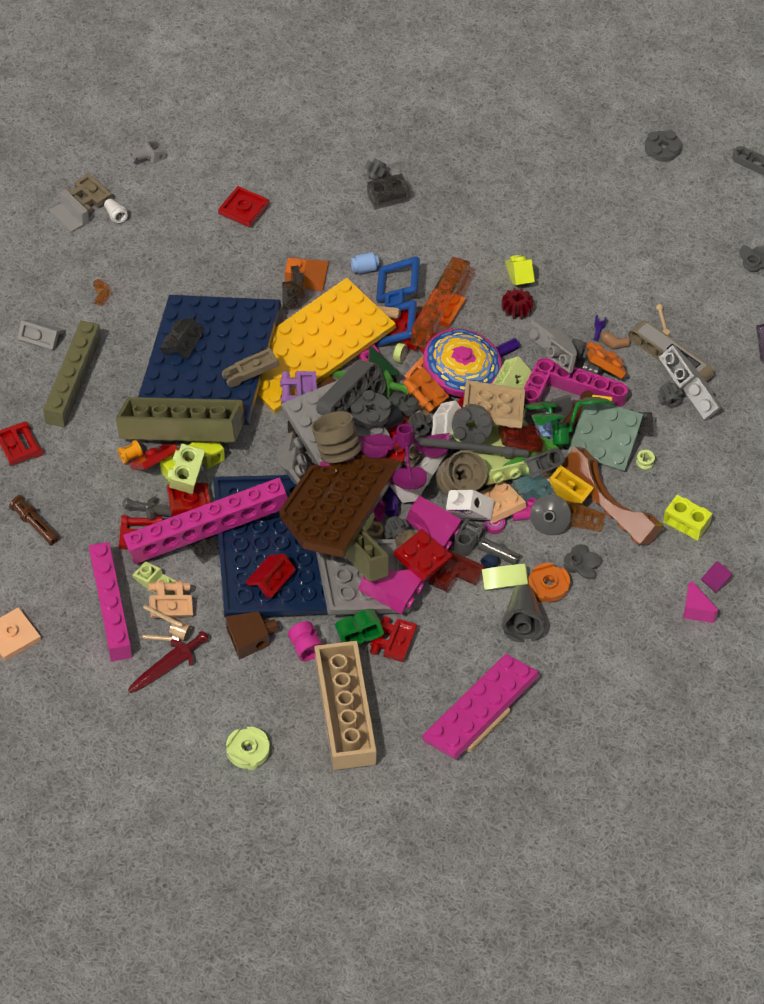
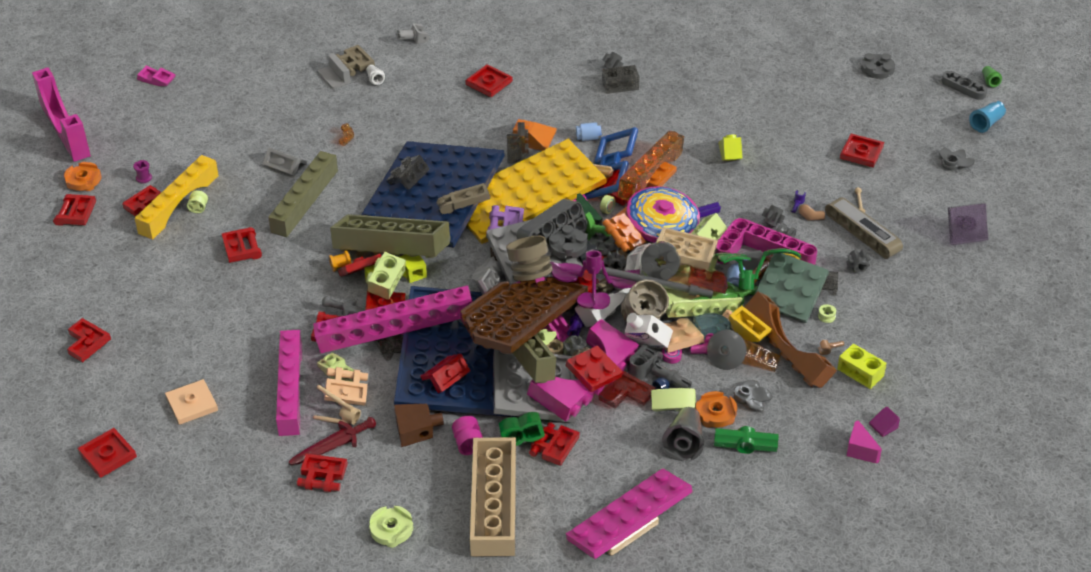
camera: 10 degrees right, 10 degrees down
(28, 514) = (249, 321): reddish brown pin -> none
(166, 692) = (322, 467): none -> red plate
(517, 303) = (723, 174): dark red gear -> none
(541, 463) = (722, 301): dark grey piece -> none
(556, 343) = (753, 207): light grey slope -> none
(583, 613) = (746, 440): none -> green piece
(605, 359) = (798, 224): orange plate -> none
(648, 498) = (826, 347): none -> medium nougat hand
(658, 257) = (862, 150): none -> red plate
(690, 381) = (879, 250): light grey slope -> none

